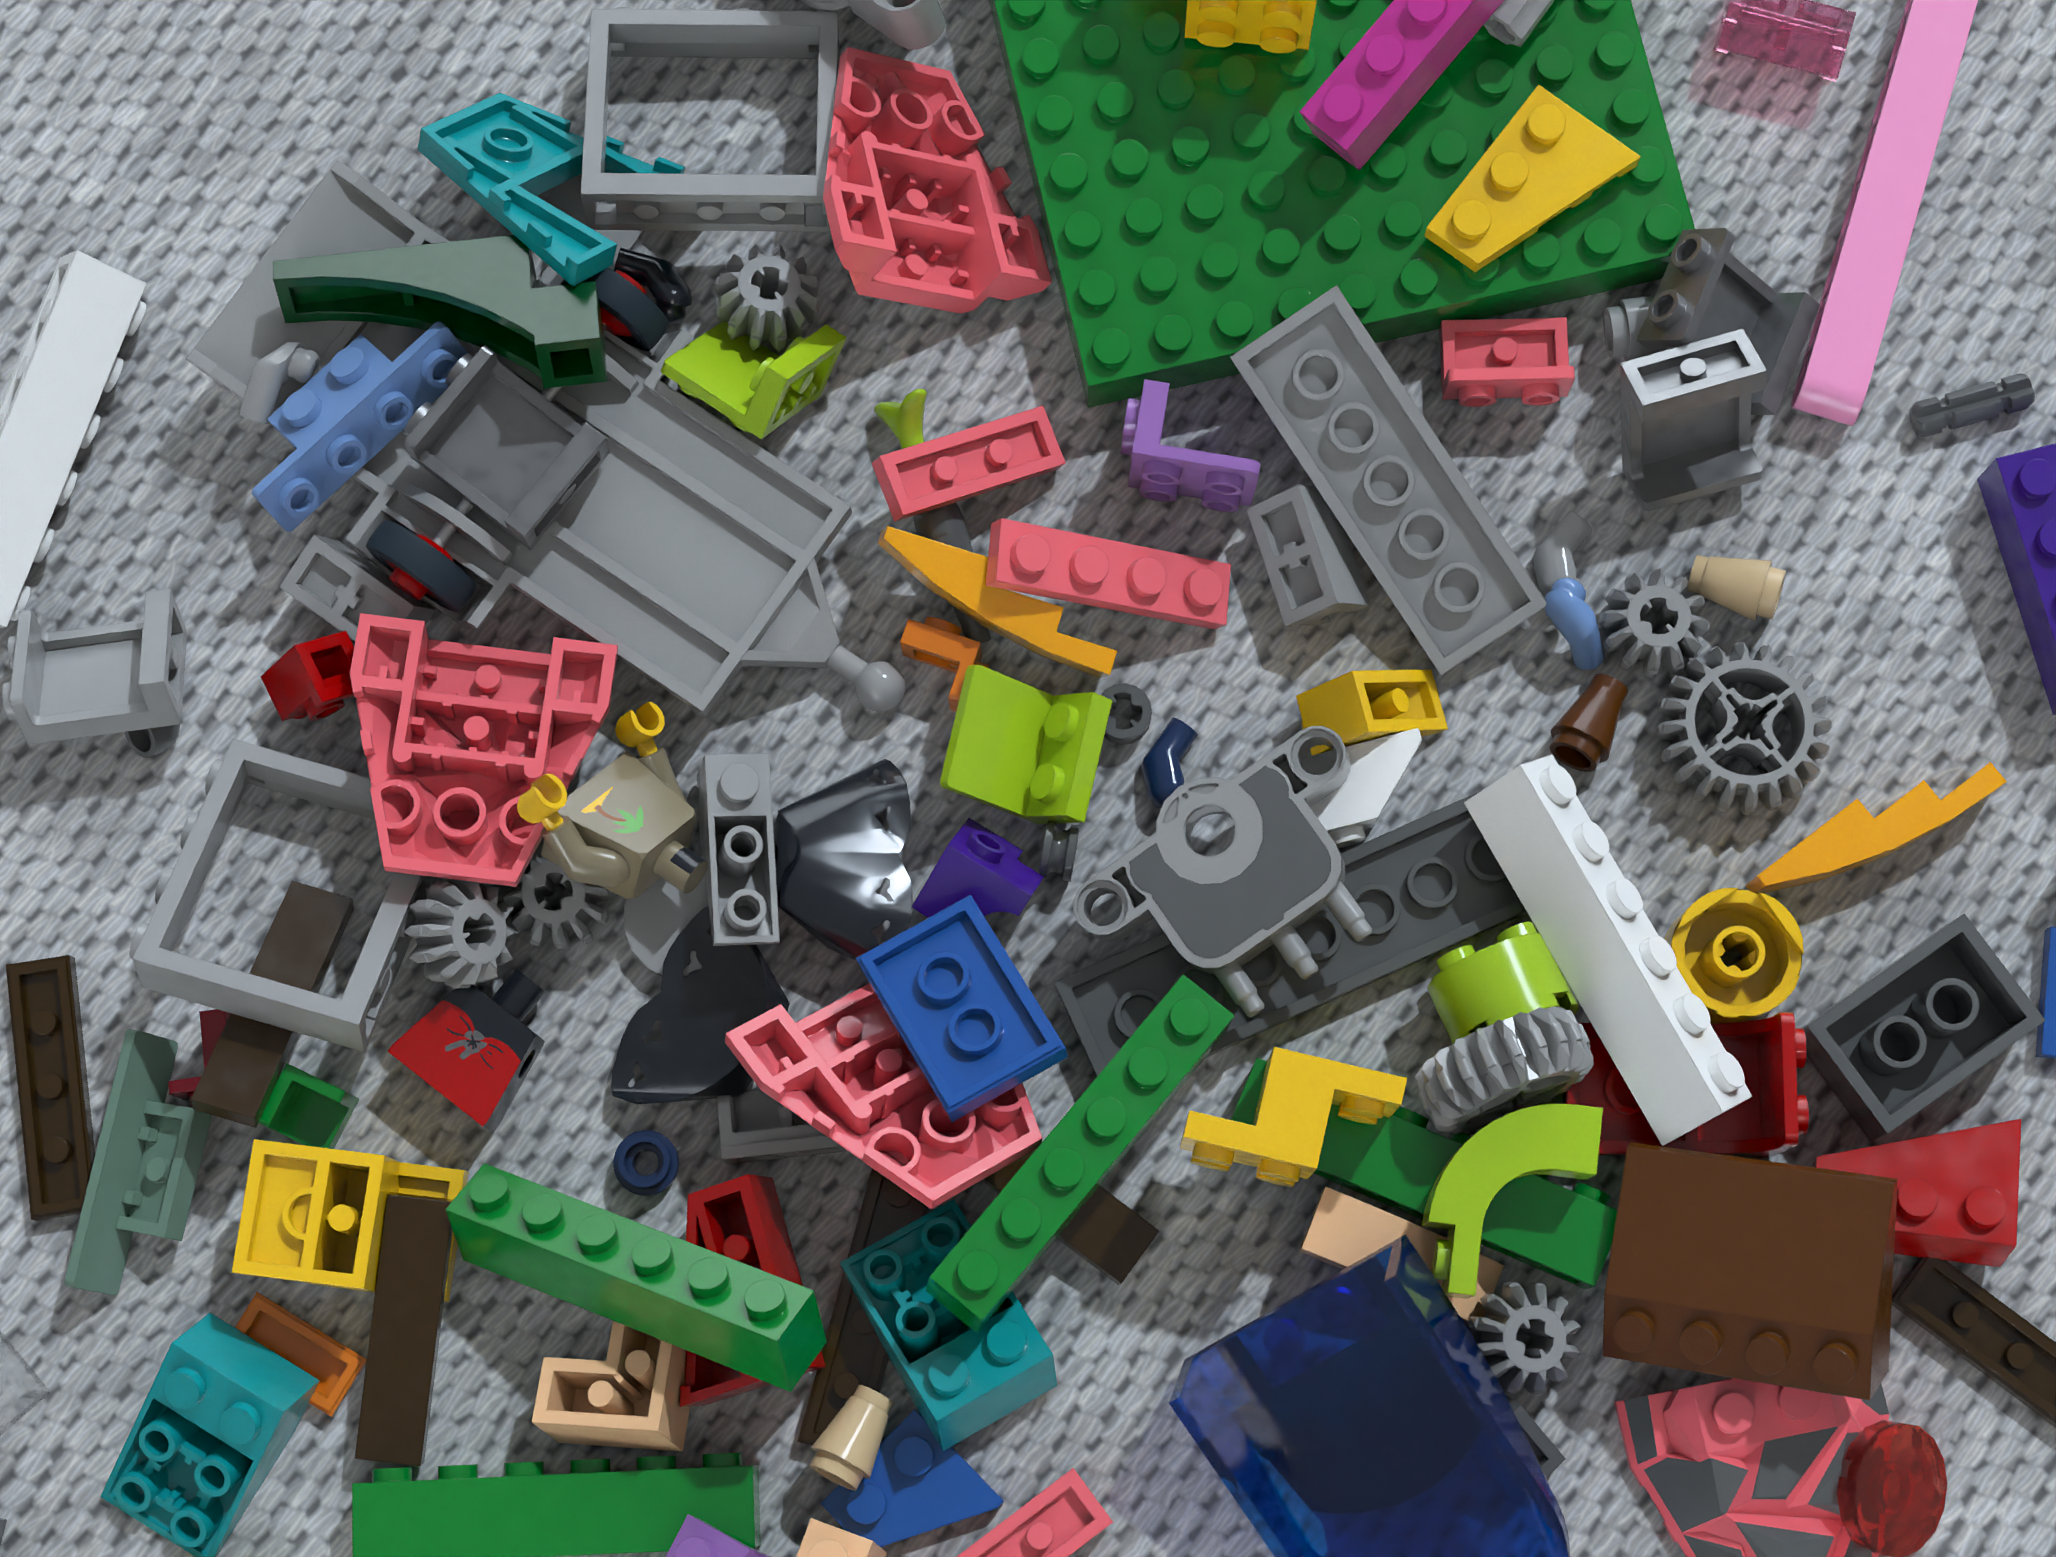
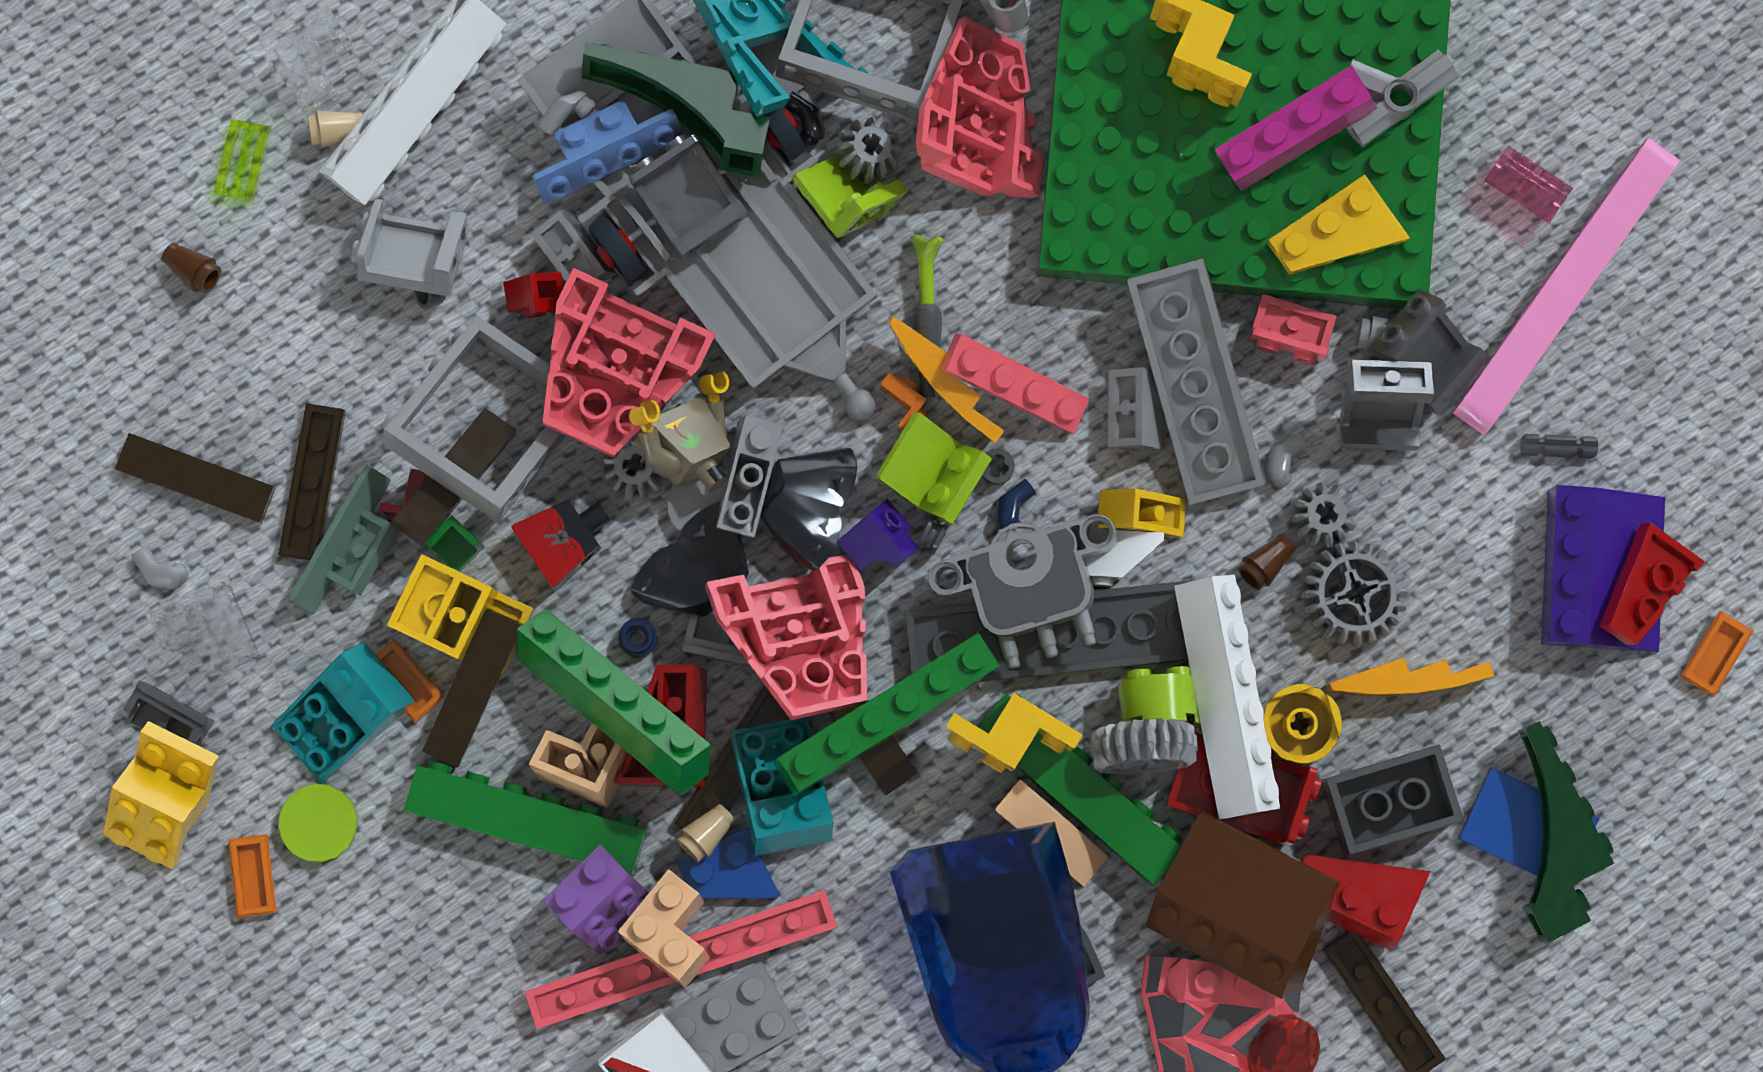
camera: 15 degrees right, 5 degrees up
(460, 933) = (573, 472): light grey gear -> none
(962, 1008) = (845, 610): blue tile -> none
(968, 463) = (954, 290): coral plate -> none
(1171, 471) = (1068, 334): medium lavender bracket -> none
(1527, 1142) = (1134, 791): lime arch -> none
(1537, 1318) = (1116, 891): light grey gear -> none
(1575, 622) = (1278, 499): medium blue arm -> none
(1738, 584) = (1382, 508): tan cone -> none

